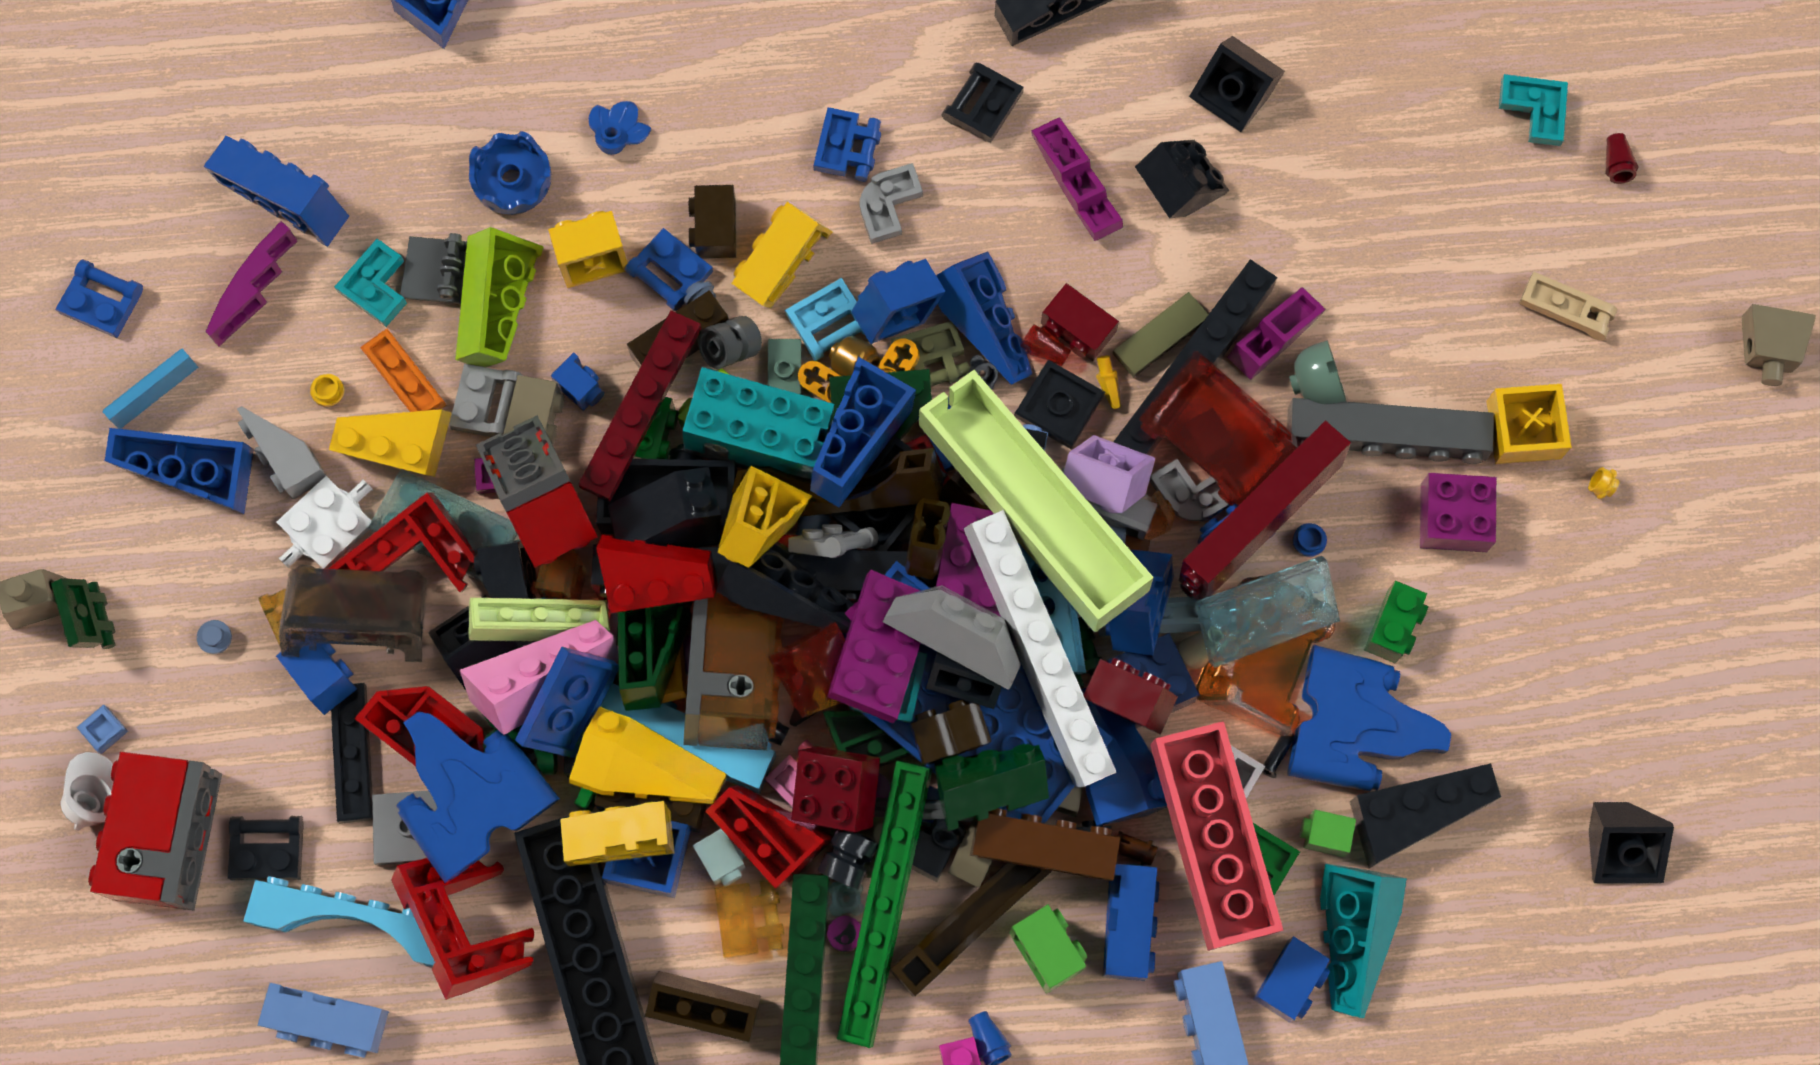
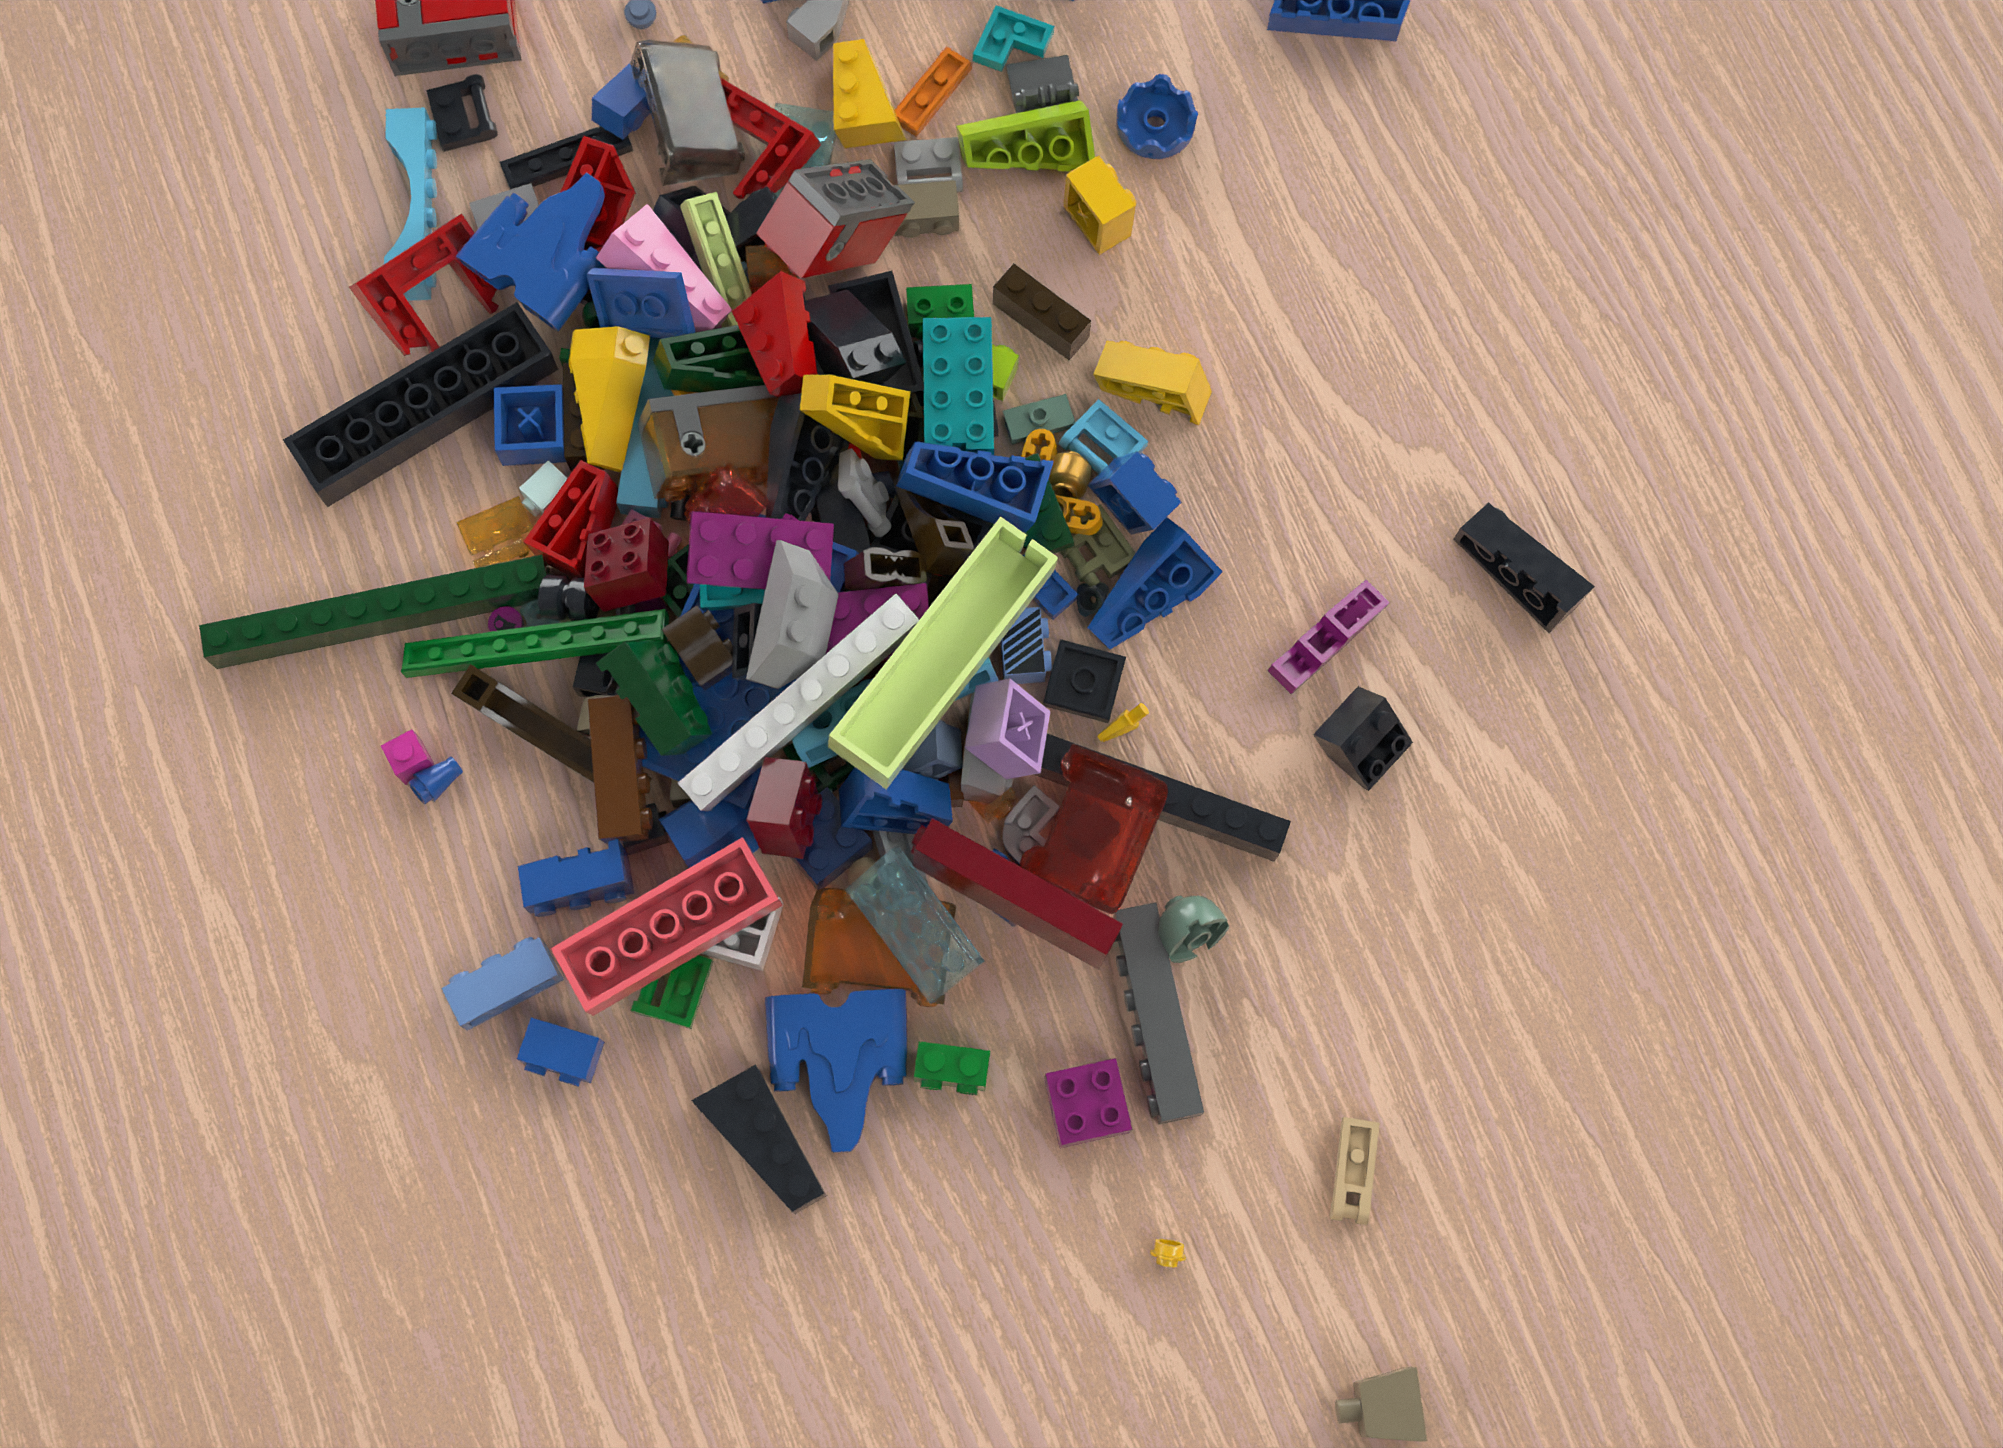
camera: 70 degrees right, 0 degrees up
(323, 1020) = (317, 199): medium blue wedge -> none
(325, 523) = (771, 68): white plate -> none
(327, 390) = (897, 31): yellow plate -> none
(578, 383) = (968, 237): blue brick -> none
(617, 127) = (1241, 200): blue plate -> none
(617, 834) = (532, 385): yellow wedge -> none
(640, 406) = (952, 289): dark red plate -> none
(675, 261) = (1118, 291): blue plate -> none
(697, 289) = (1095, 315): sand blue plate -> none
(703, 1006) = (403, 513): dark brown brick -> none
(714, 221) = (1168, 311): dark brown brick -> none
(729, 342) = (1043, 351): dark grey wheel -> none
(837, 141) = (1290, 399): blue plate -> none
(880, 197) = (1244, 455): light grey plate -> none
(992, 106) = (1378, 534): black plate -> none
(1045, 345) = (1140, 650): clear red cone -> none
(1048, 948) = (529, 806): bright green brick -> none
(1079, 322) = (1174, 676): dark red brick -> none
(1137, 849) = (653, 869): reddish brown pin -> none
(1160, 335) = (1188, 760): olive tile -> none
(1236, 83) = (1488, 766): black slope -> none
(1275, 333) = (1227, 873): magenta slope -> none
(1277, 755) = (784, 983): black piece -> none
(1309, 540) = (1017, 962): blue plate -> none
(1328, 833) = (716, 1051): bright green brick -> none
(1361, 923) = (636, 1108): teal wedge -> none
(1529, 423) = (1205, 1153): yellow brick -> none
(1541, 98) = (1580, 1092): teal plate -> none
(1620, 161) = (1541, 1189): dark red cone -> none
(1628, 844) = (783, 1361): black slope -> none

